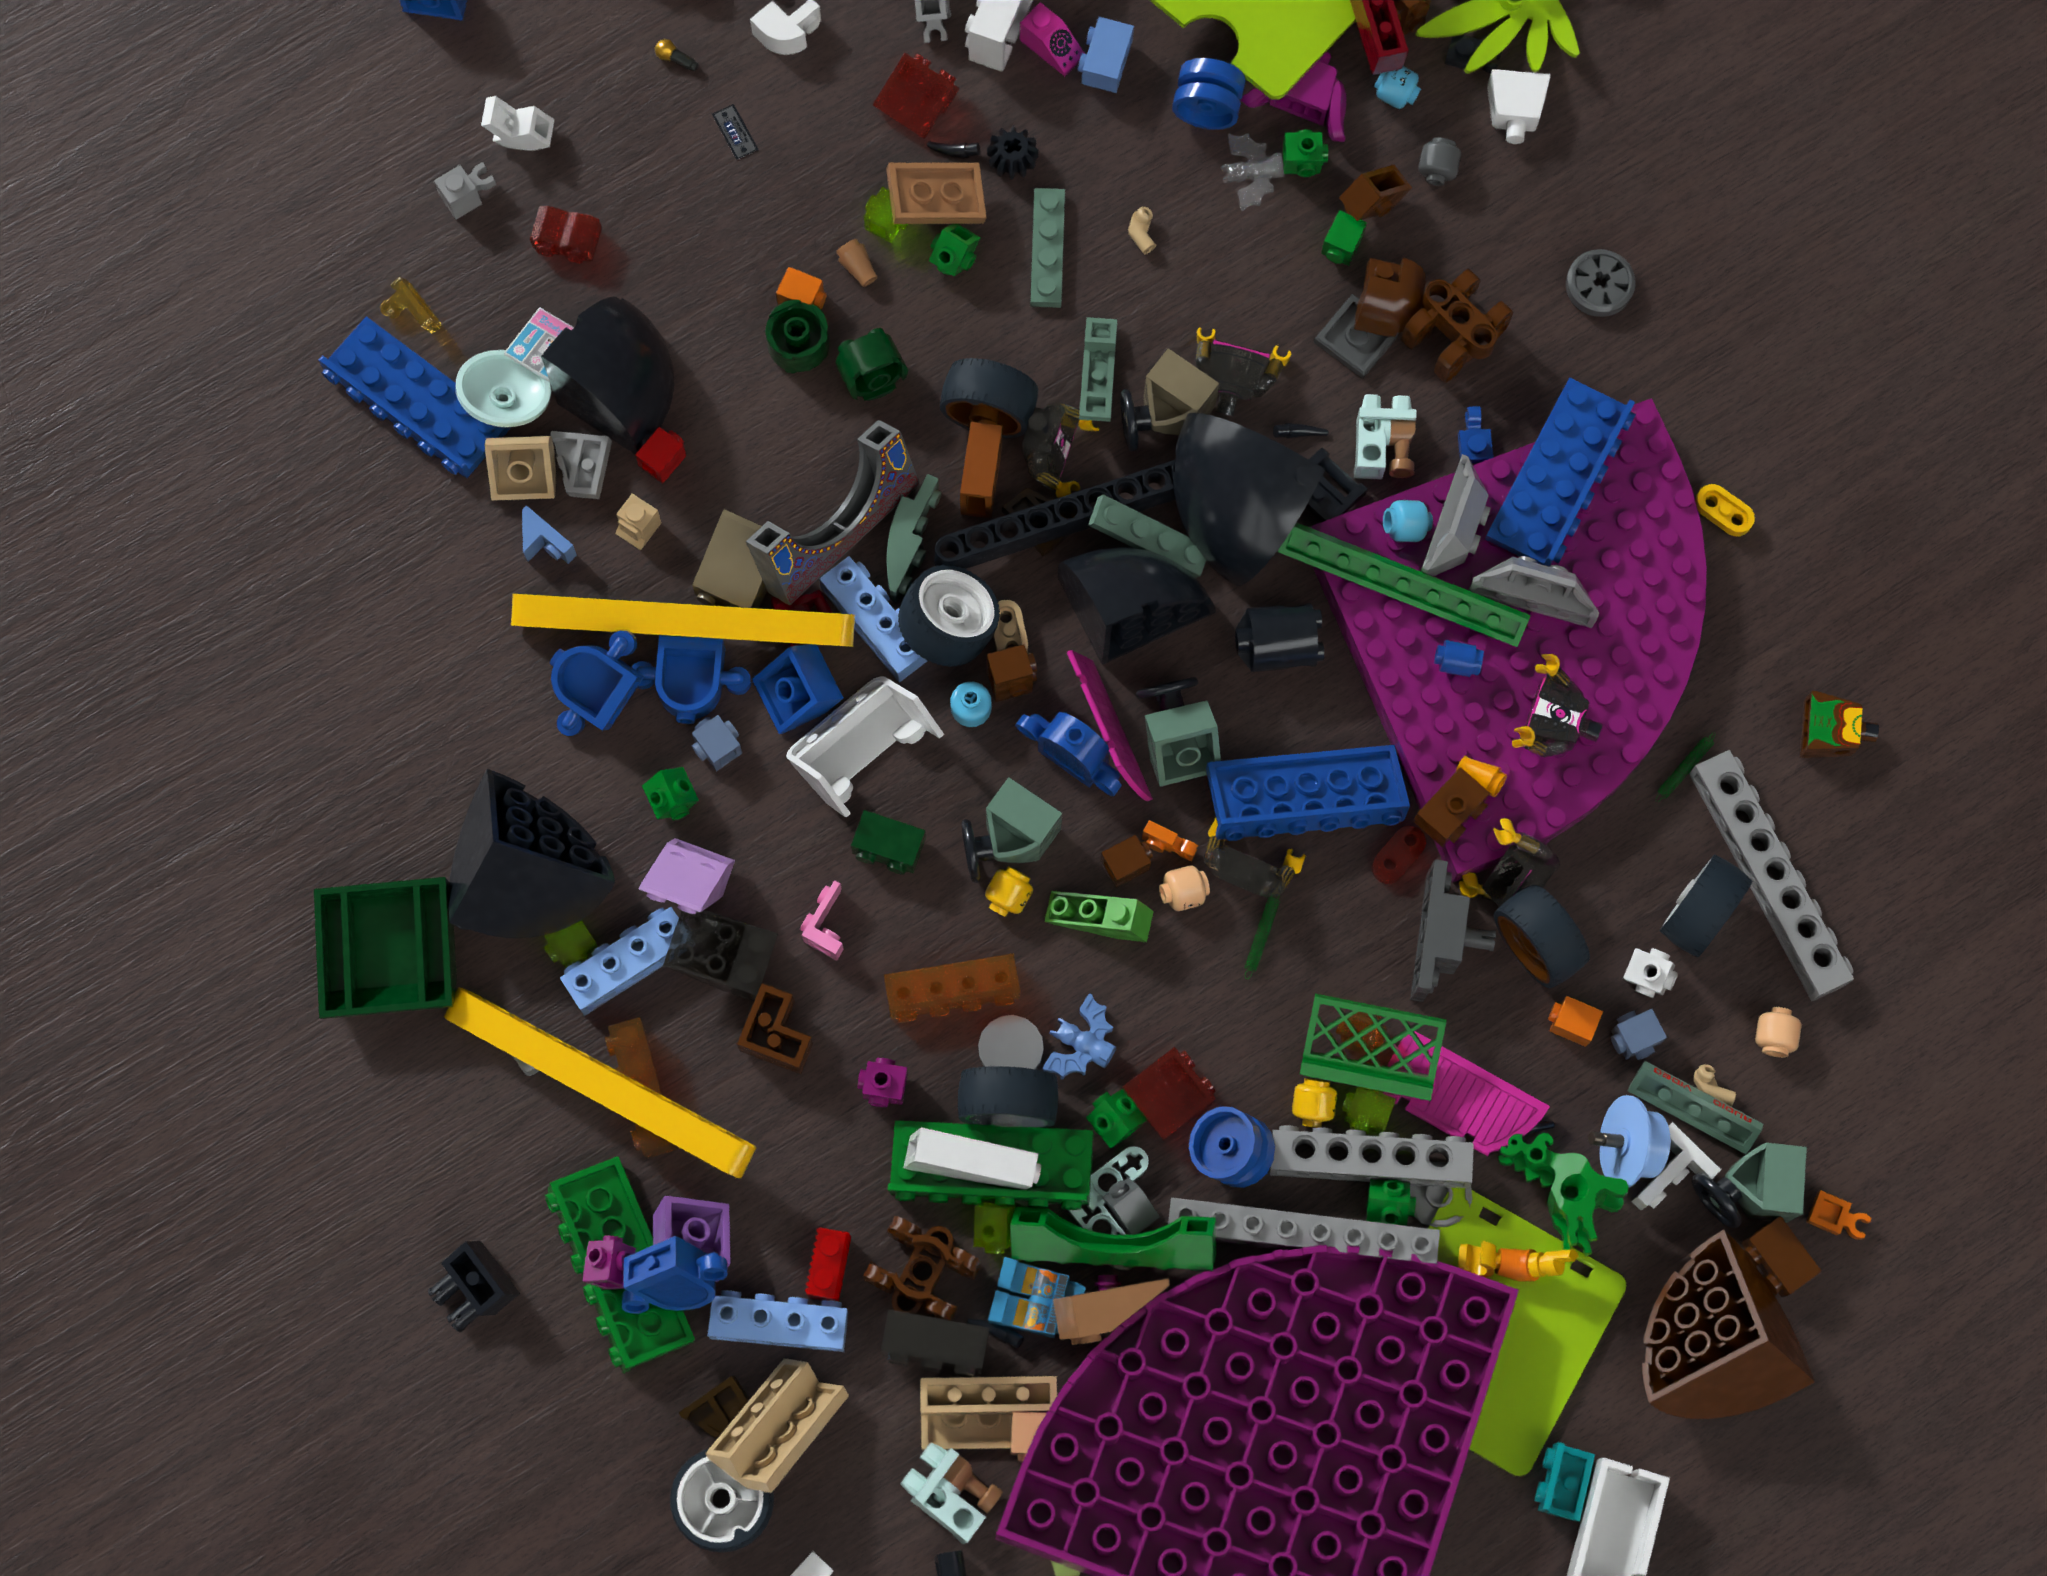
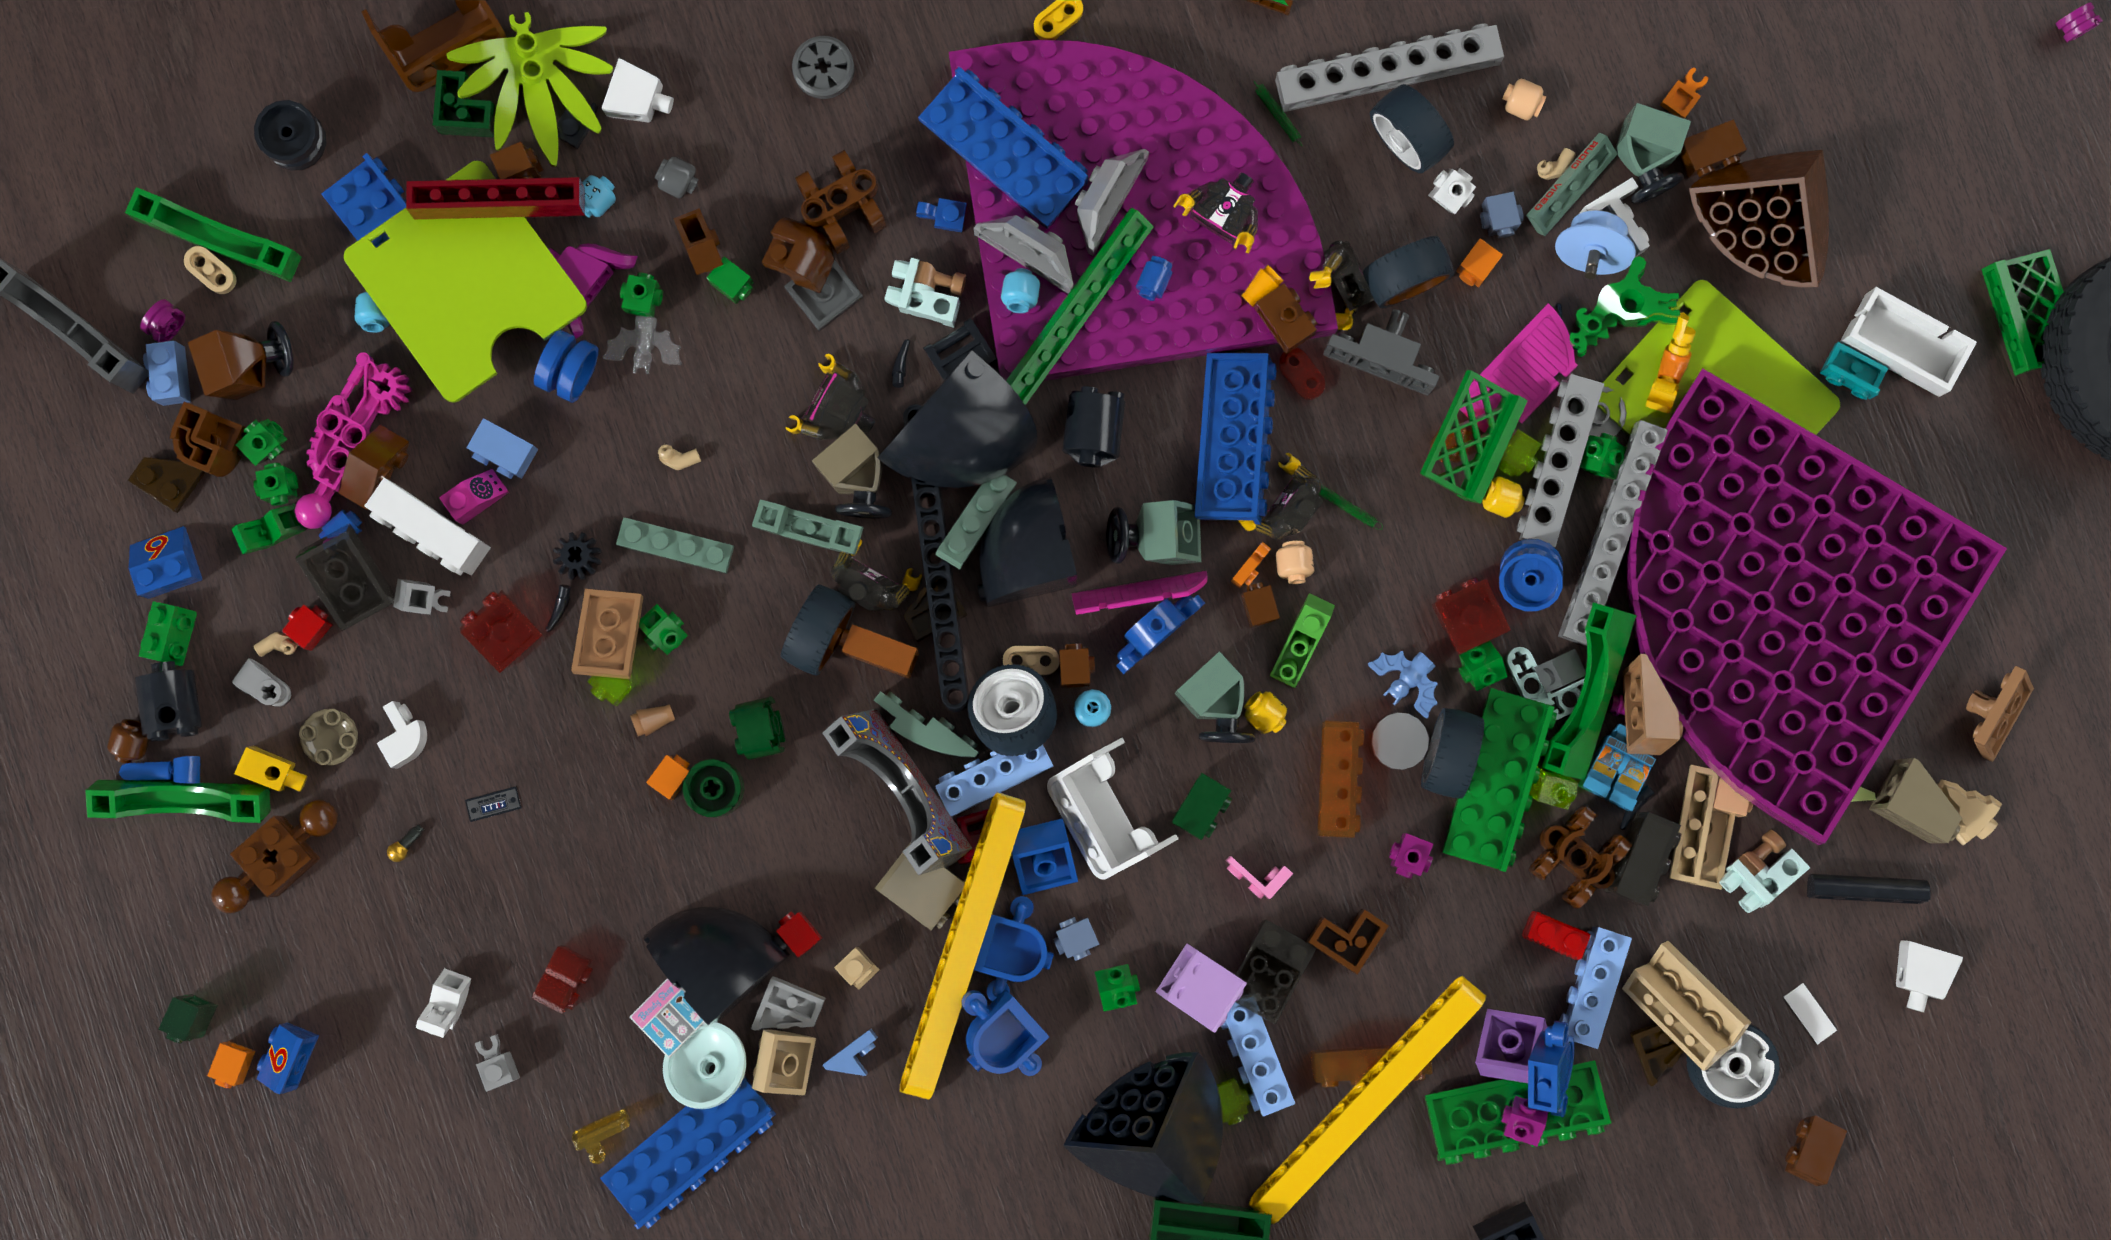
camera: 75 degrees left, 10 degrees up
(971, 1160) = (1500, 796): white slope -> none

